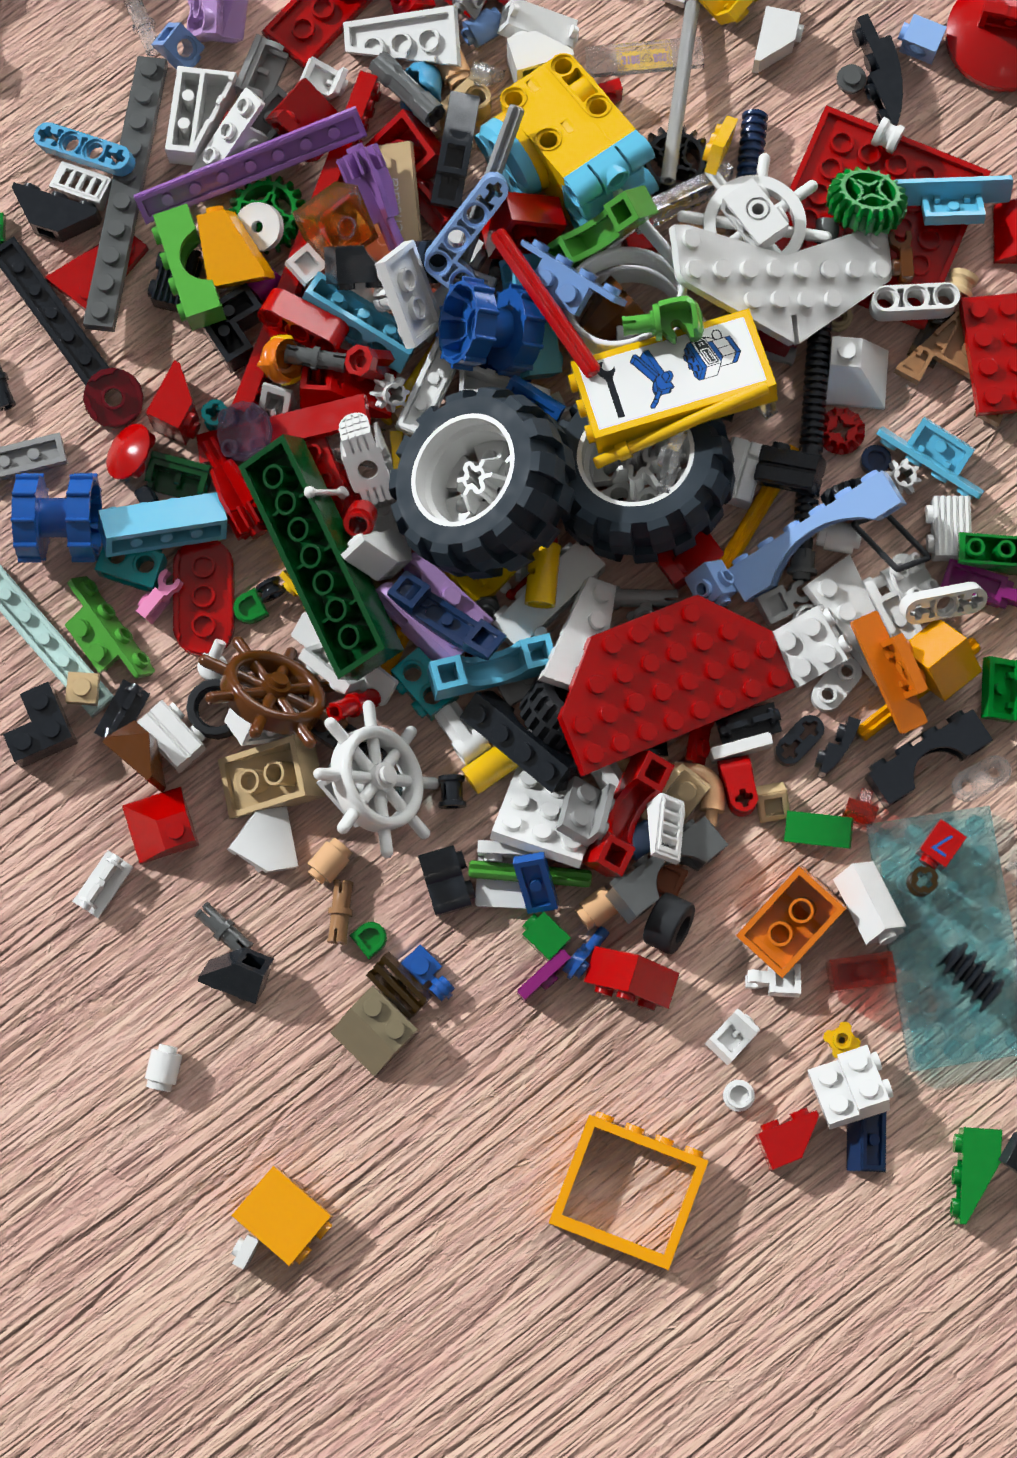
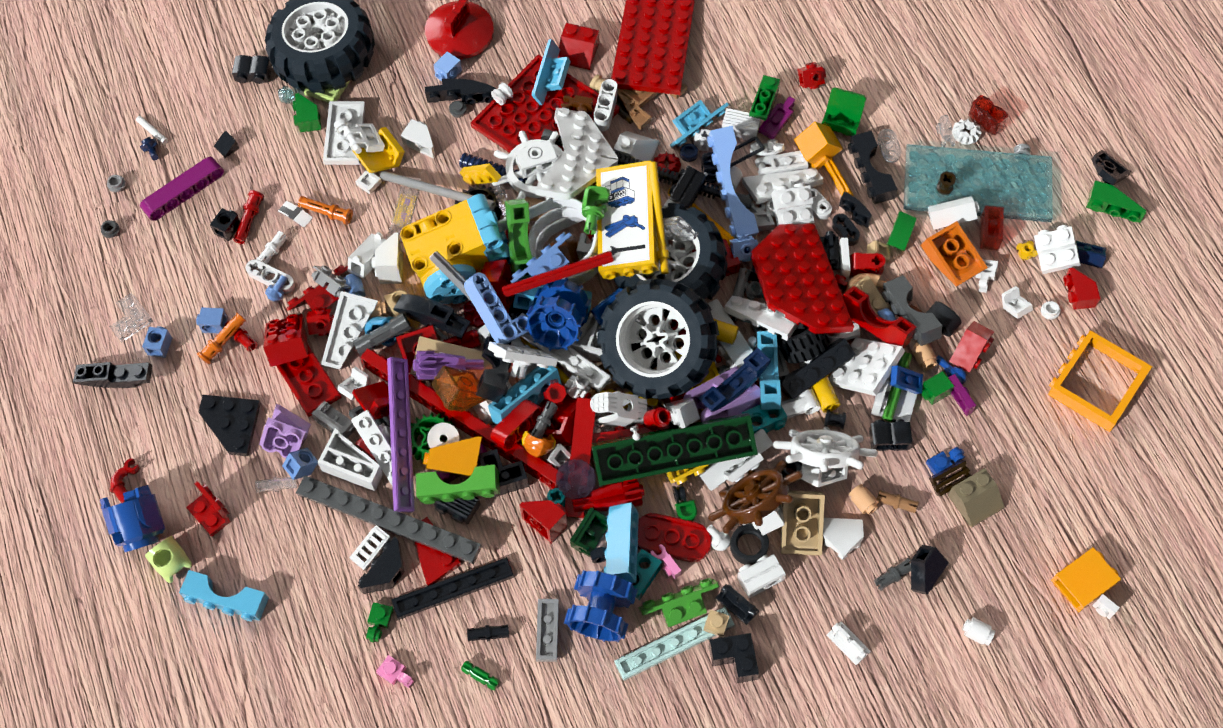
camera: 75 degrees left, 15 degrees down
(82, 152) = (346, 534): dark azure beam -> none
(108, 380) = (518, 570): dark red tile -> none
(129, 452) = (565, 557): red dish -> none
(139, 751) = (772, 593): reddish brown slope -> none
(160, 825) = (817, 596): red slope -> none
(305, 264) = (479, 414): white plate -> none
(352, 704) = (772, 454): red pin -> none
(370, 938) = (917, 489): green tile -> none
(485, 73) = (387, 290): clear plate -> none
(585, 811) = (871, 337): light grey bracket -> none
(673, 811) = (888, 299): white slope -> none
(860, 808) = (893, 206): clear red tile -> none
(866, 201) = (540, 110): green gear -> none
(893, 670) = (820, 164): orange bracket -> none
(931, 597) = (787, 133): white beam -> none
(940, 846) = (927, 169): red brick -> none
(971, 975) = (1005, 171): black piece -> none

